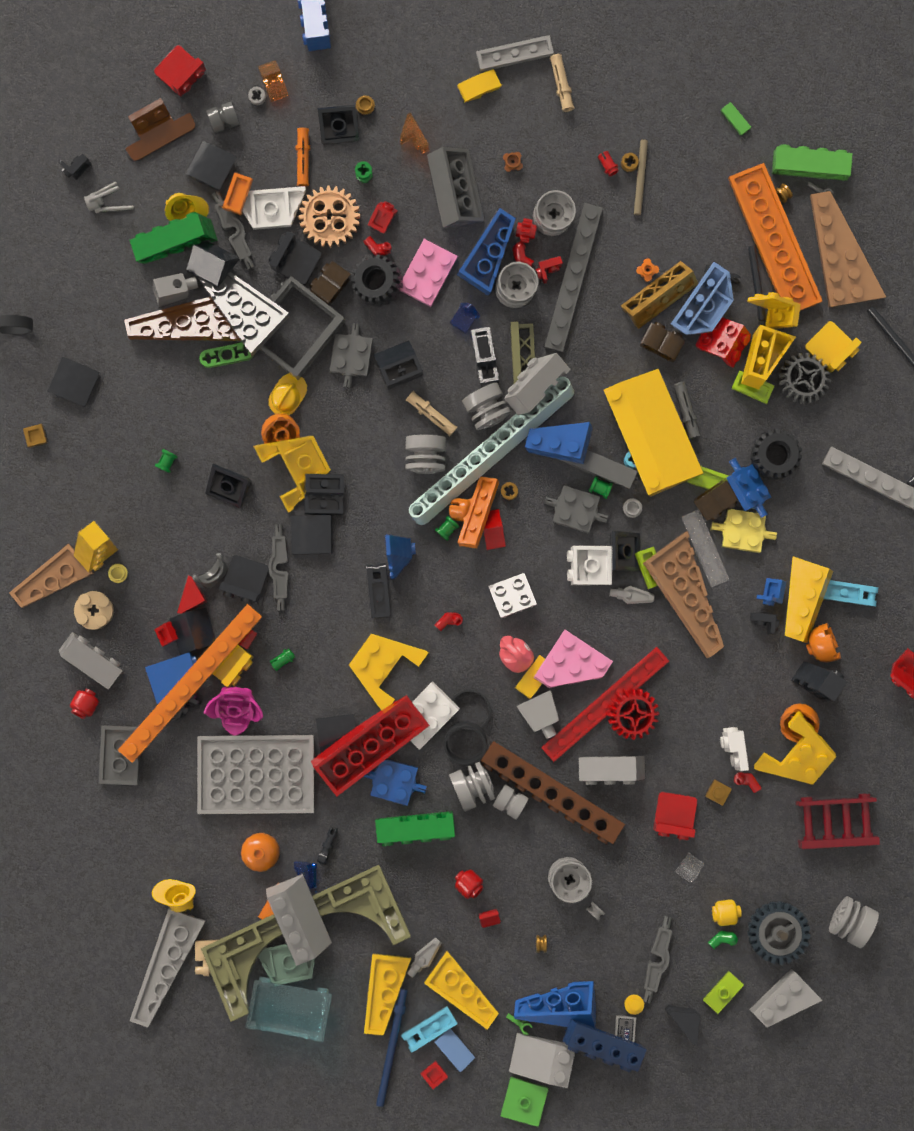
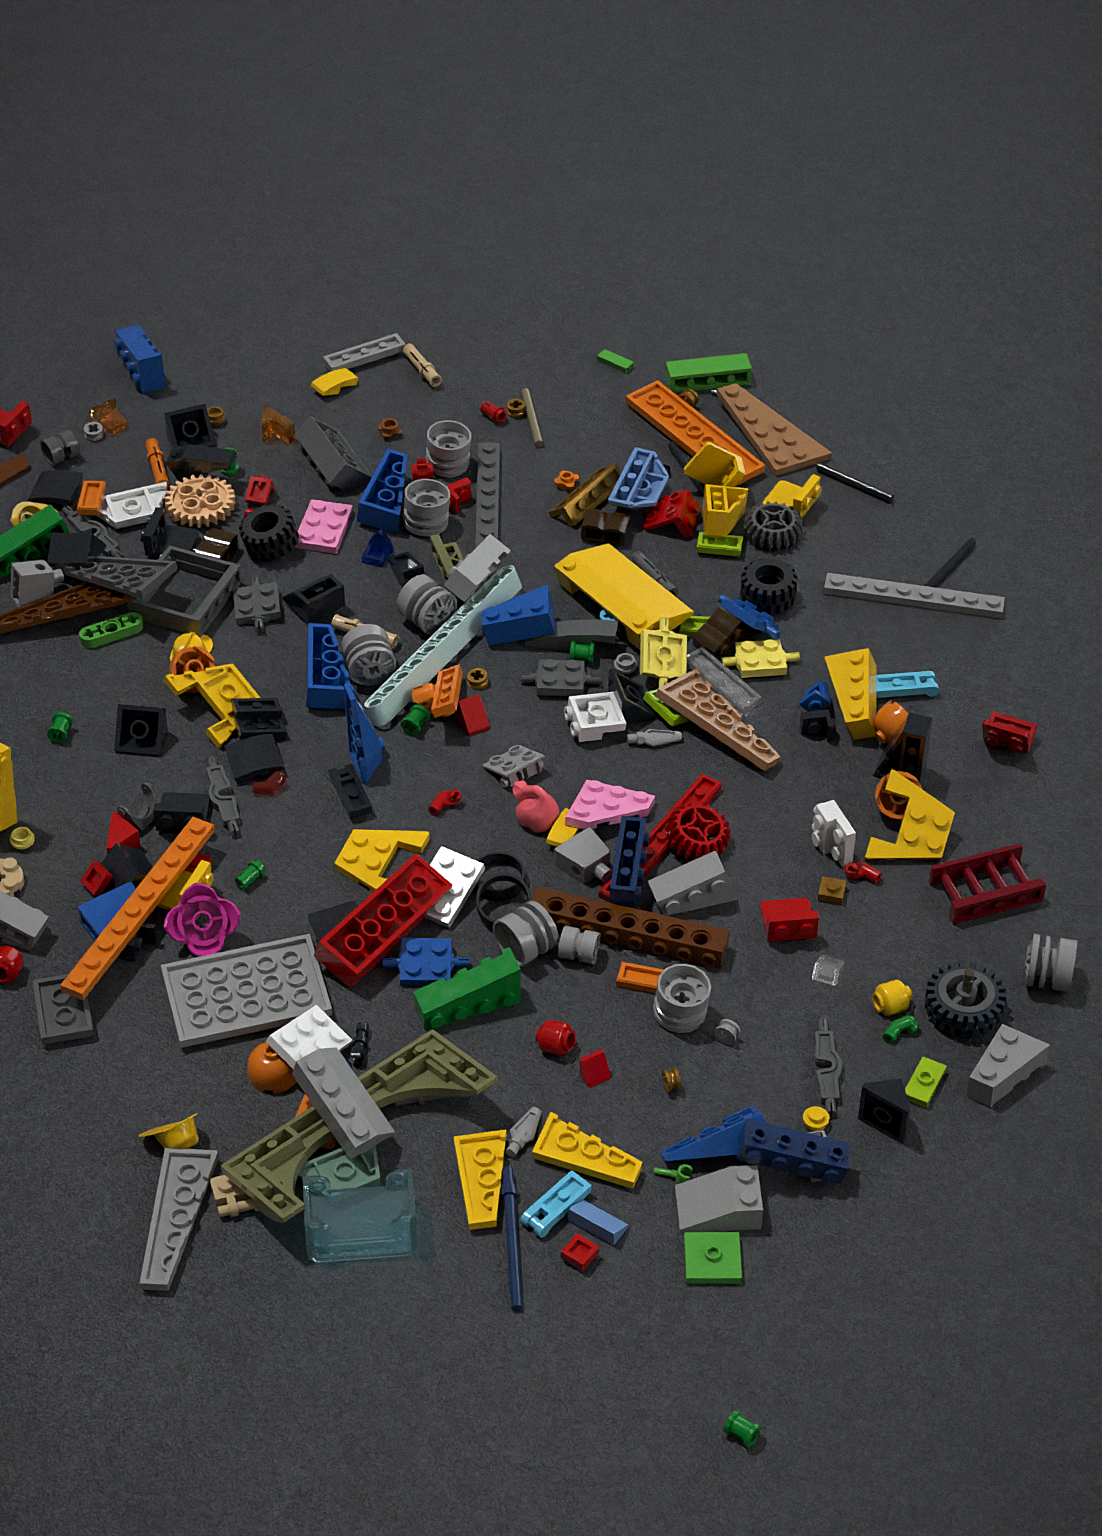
camera: 15 degrees left, 40 degrees down
(288, 846) = (306, 1034): none -> white plate
(319, 567) = (271, 785): none -> clear red arm
(337, 174) = (198, 460): none -> black slope
(386, 463) = (324, 669): none -> blue wedge
(550, 839) = (638, 977): none -> orange tile
(567, 740) = (628, 861): none -> dark blue brick
(663, 515) = (663, 653): none -> light yellow plate

